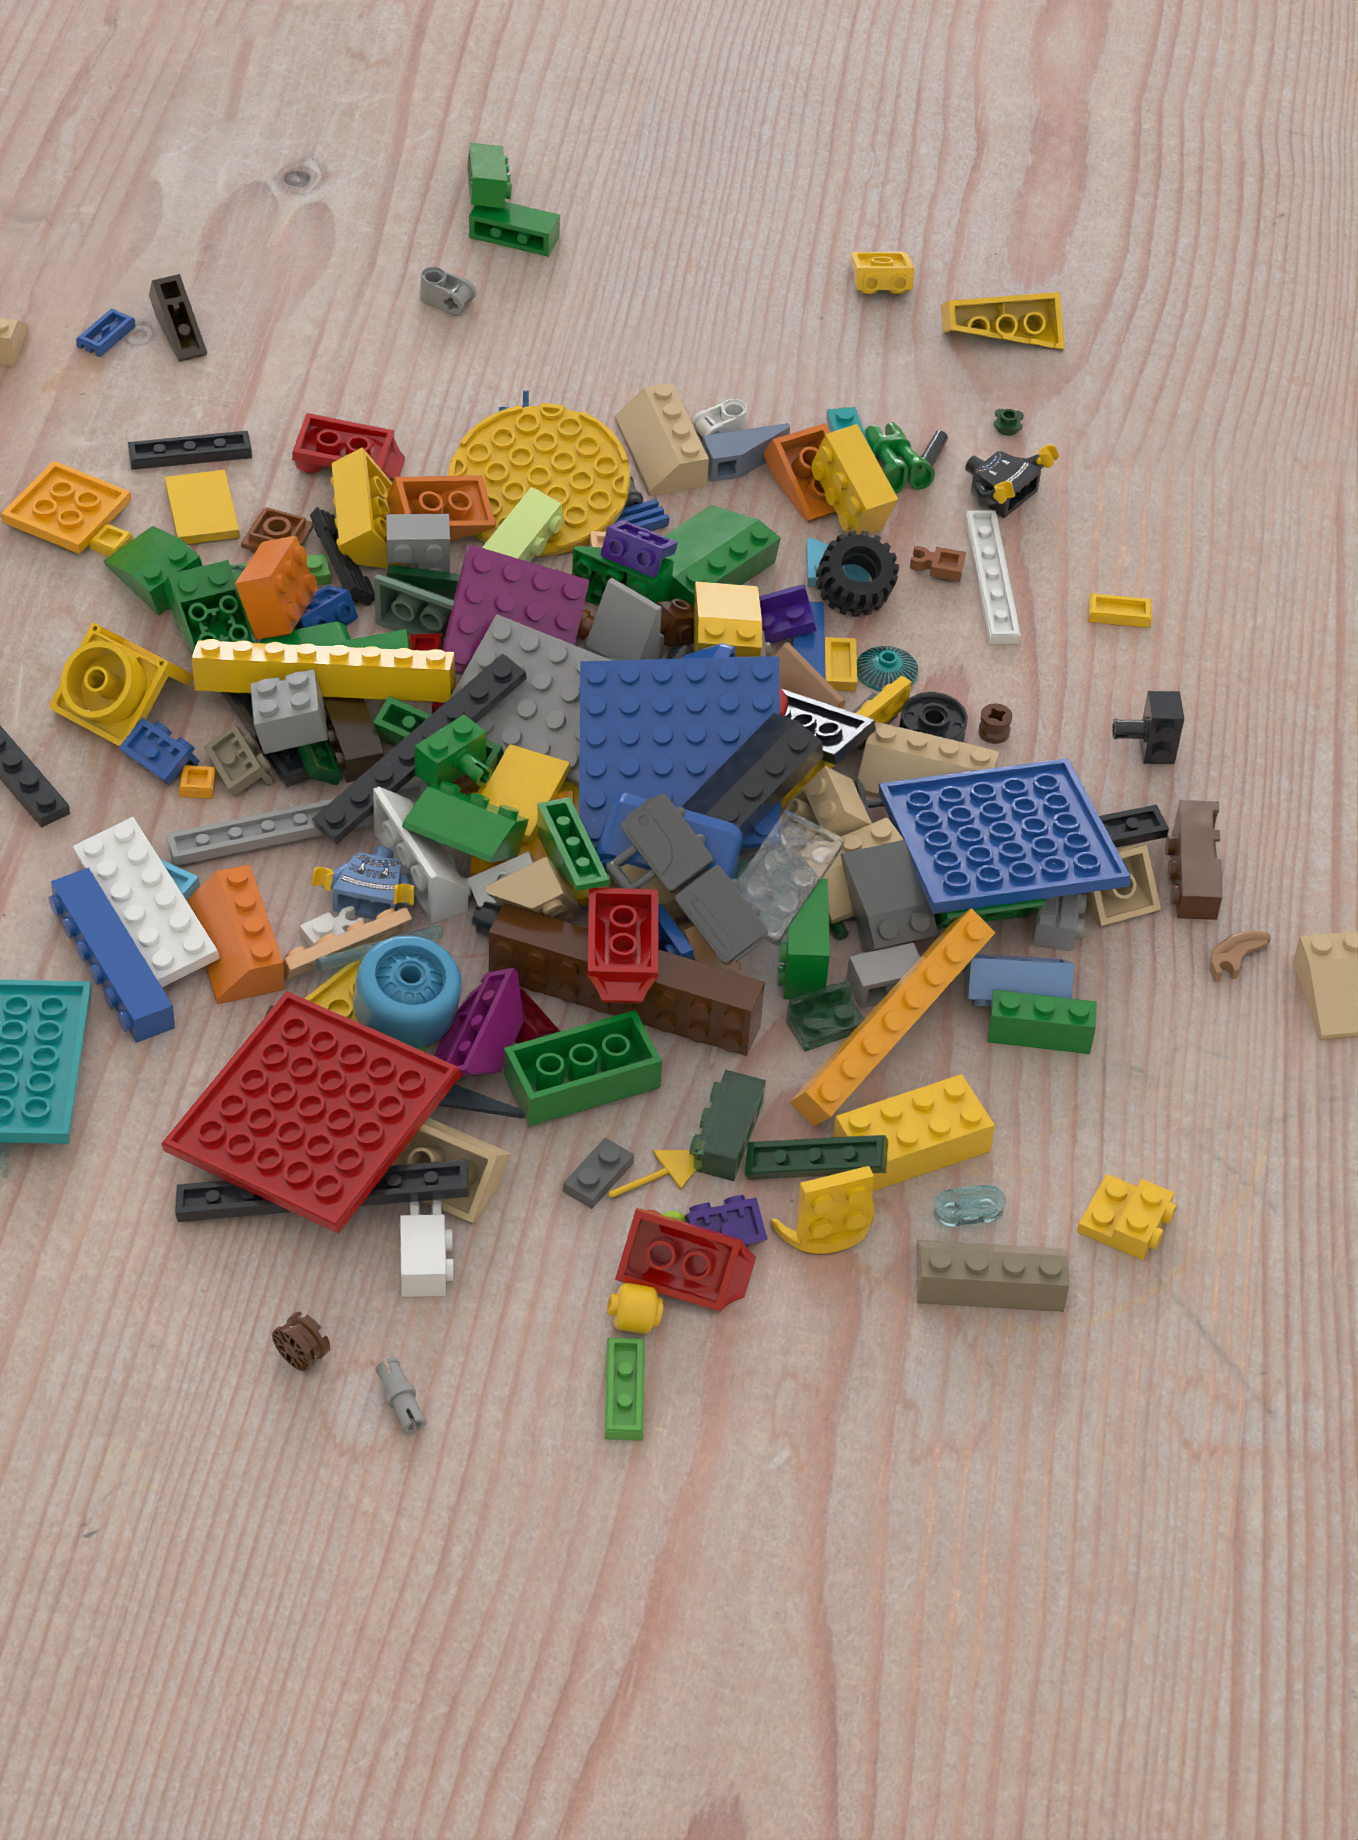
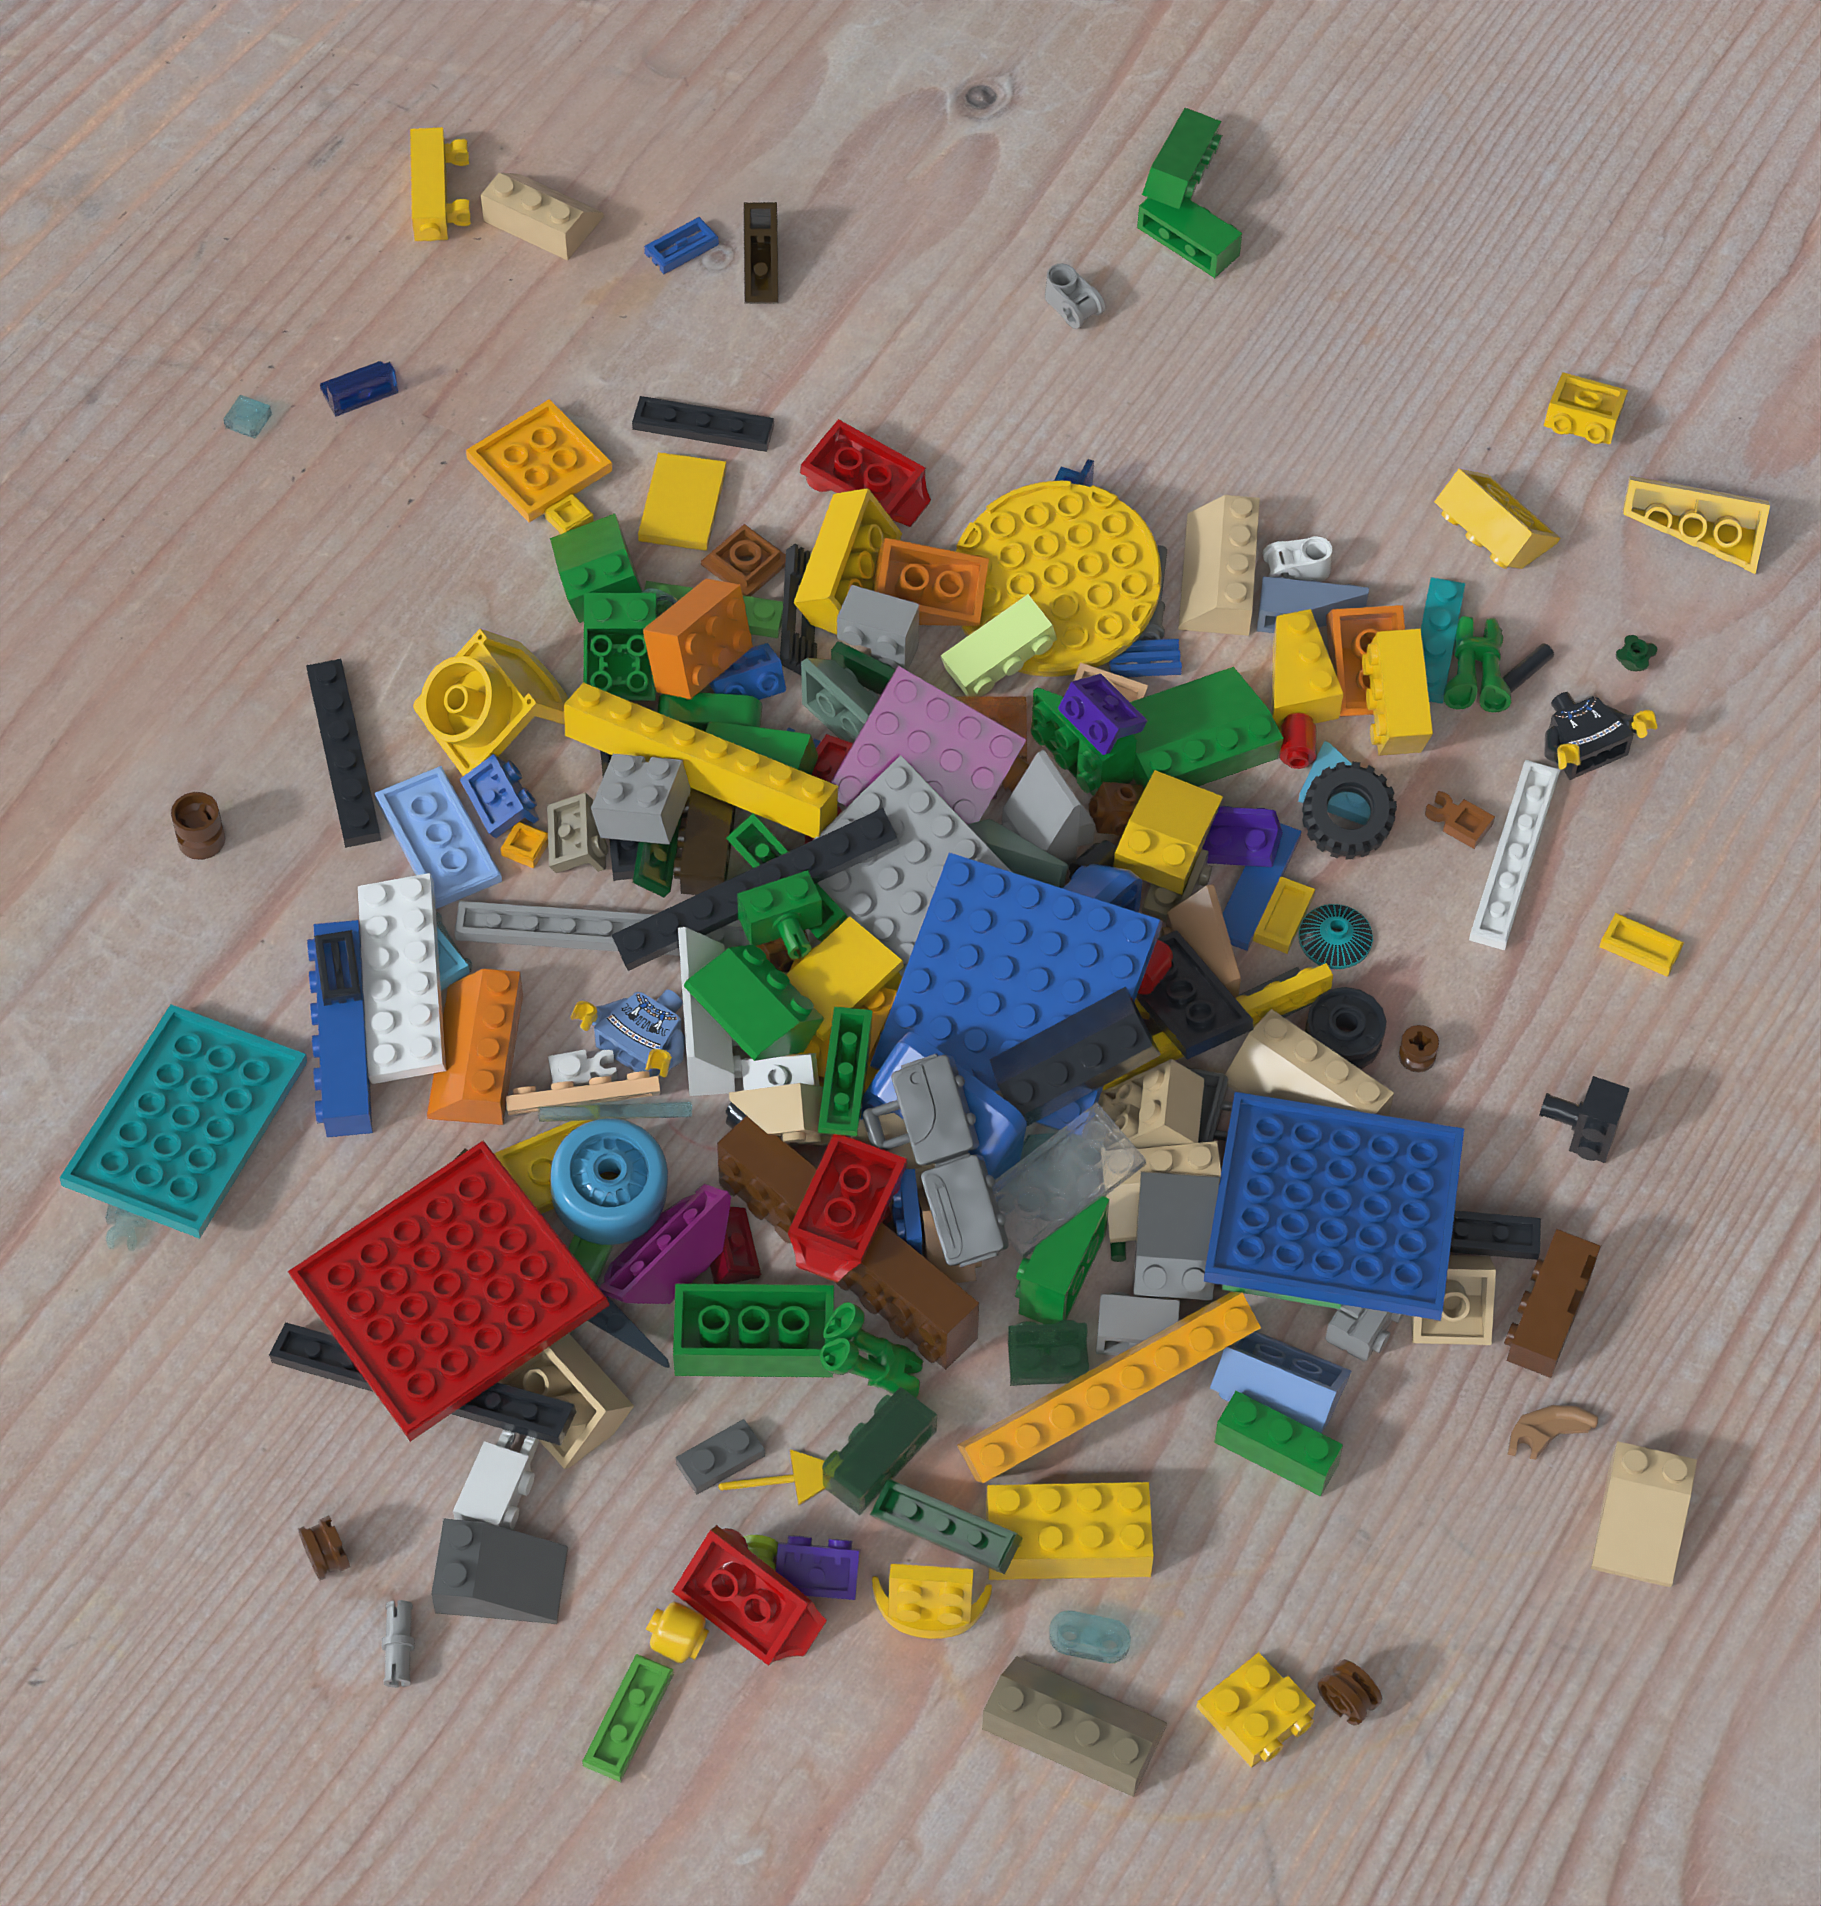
camera: 25 degrees right, 10 degrees up
(100, 922) = (341, 992): none -> black tile
(117, 792) = (438, 835): none -> light blue tile
(457, 1315) = (497, 1573): none -> dark grey slope
(685, 1053) = (887, 1363): none -> green piece
(767, 492) = (1302, 671): none -> yellow wedge
(792, 545) = (1299, 741): none -> red brick
(854, 359) = (1495, 519): none -> yellow slope
(1193, 1177) = (1349, 1691): none -> reddish brown wheel

